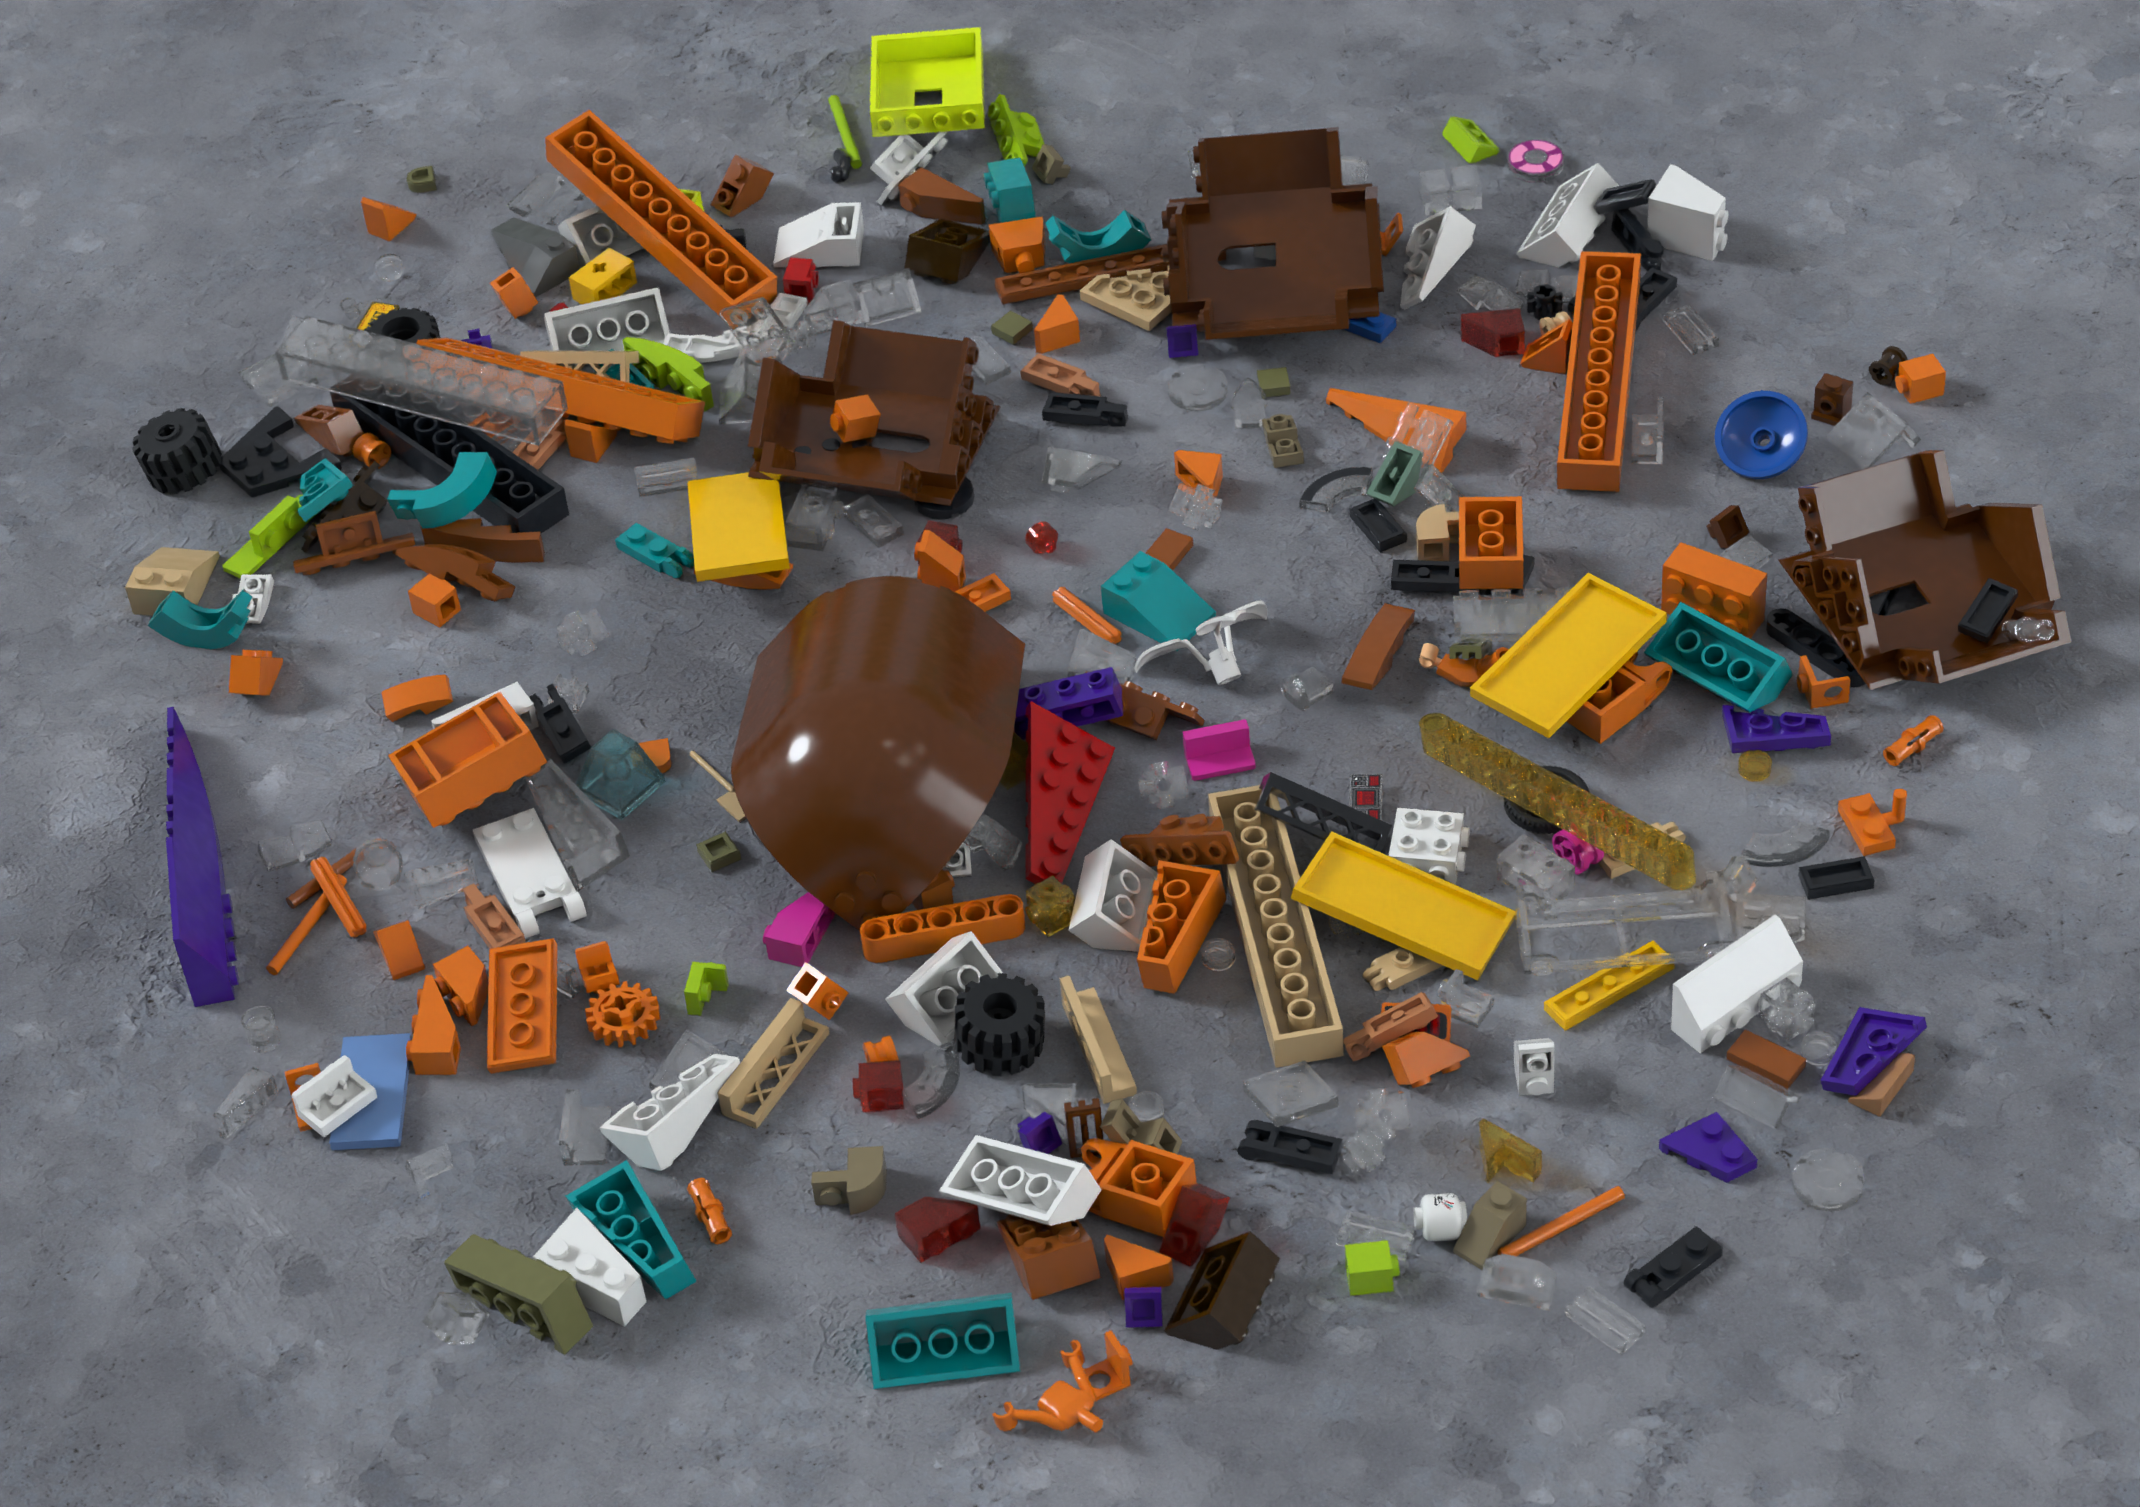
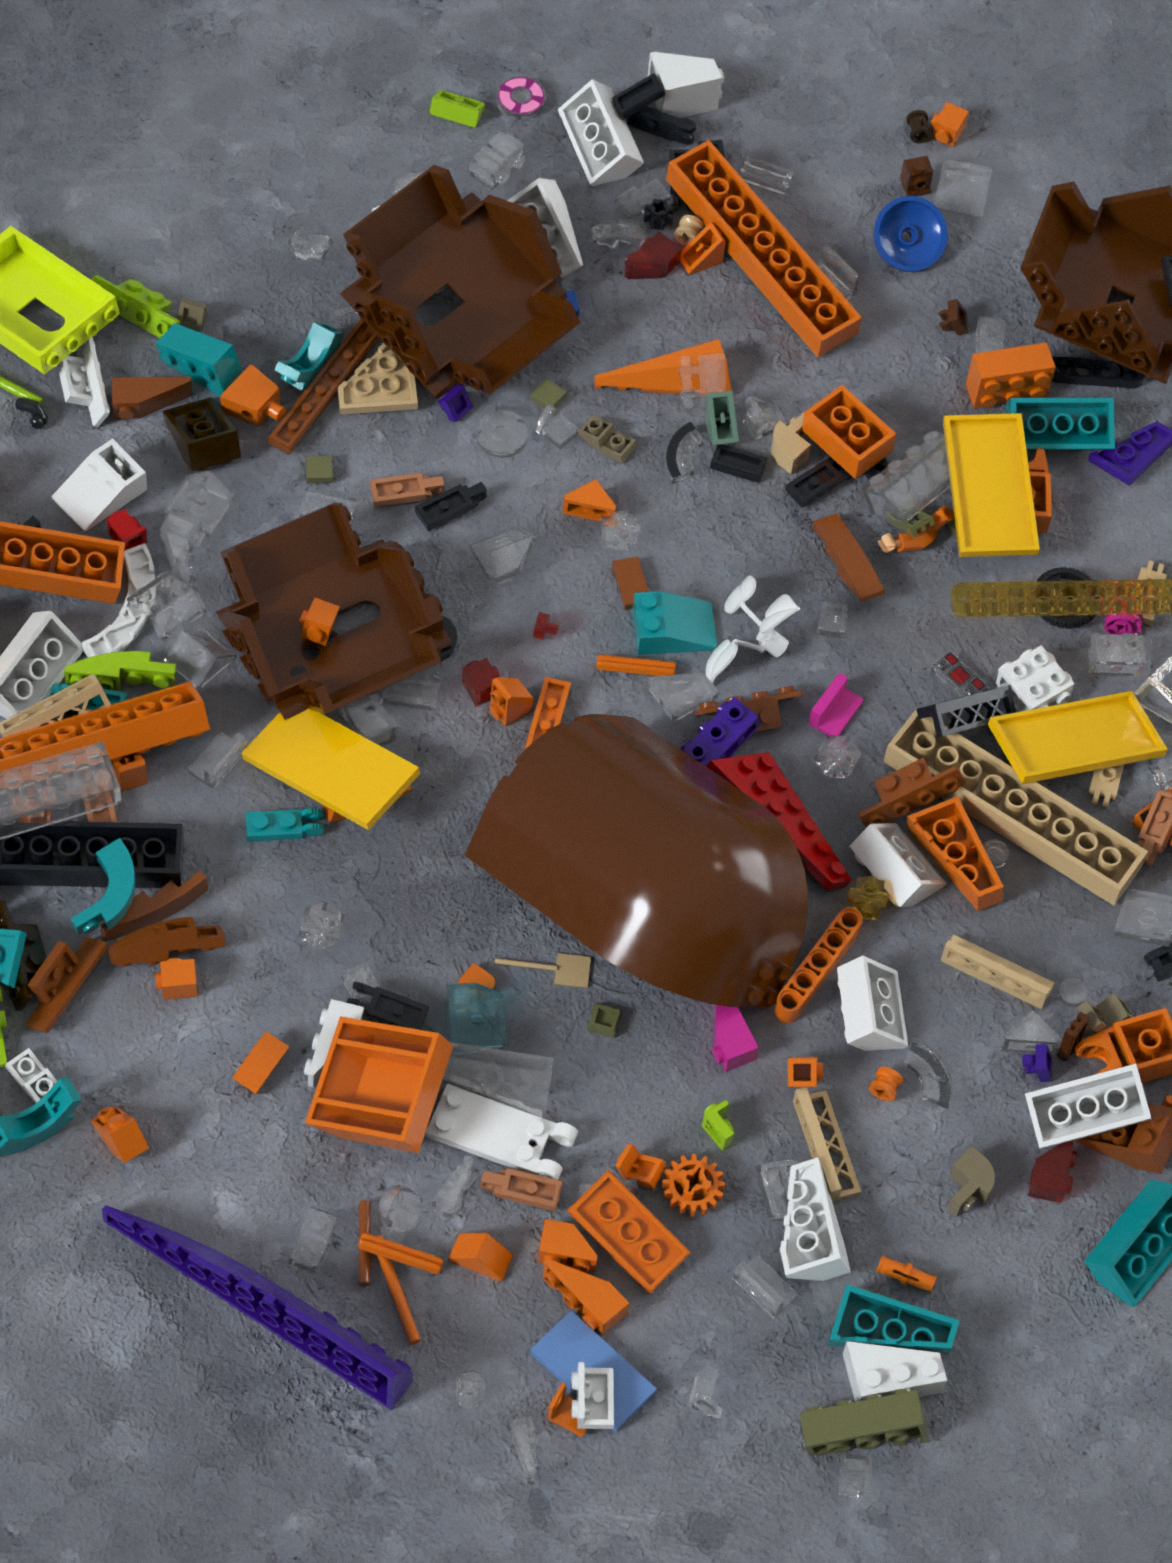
camera: 55 degrees left, 15 degrees up
(880, 1086) = (911, 1106): clear red brick -> none
(999, 1024) = (940, 1005): black wheel -> none
(1057, 327) = (357, 446): orange slope -> none
(1755, 765) = (1148, 484): clear yellow tile -> none
(1815, 690) = (1125, 404): orange bracket -> none

